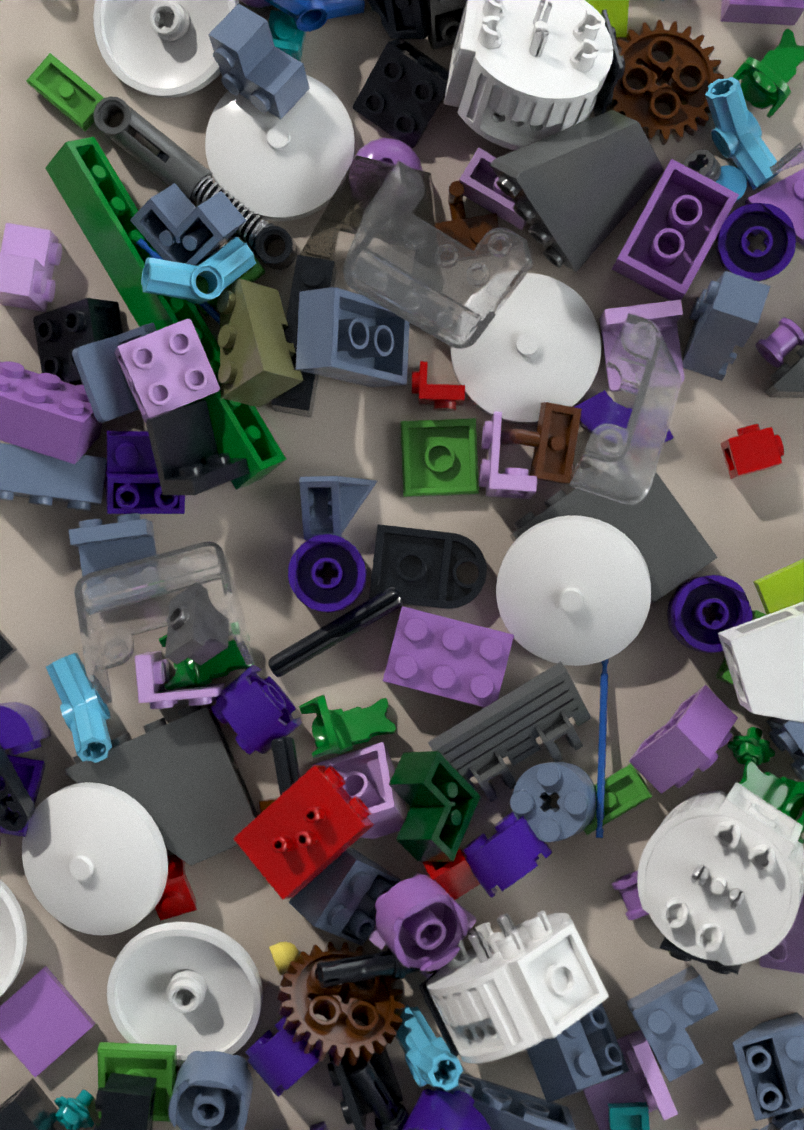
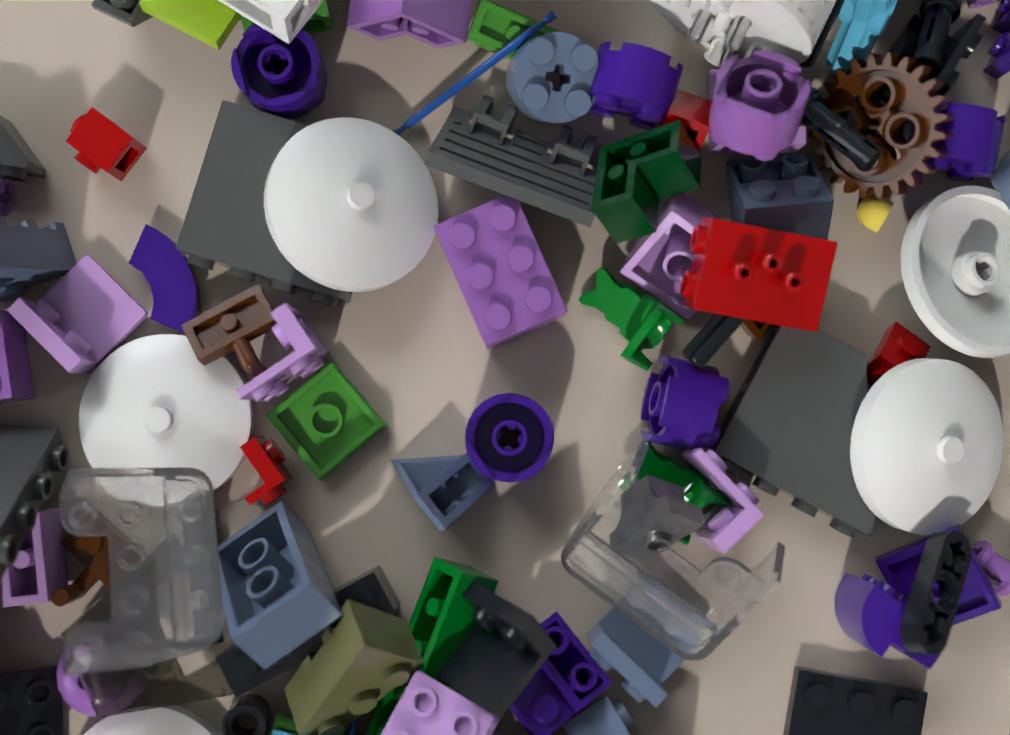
camera: 135 degrees left, 0 degrees up
(81, 708) = (807, 563): medium azure piece -> none
(335, 631) = (555, 389): black axle -> none
(425, 566) = (437, 357): black plate -> none
(622, 460) = (183, 248): clear windscreen -> none

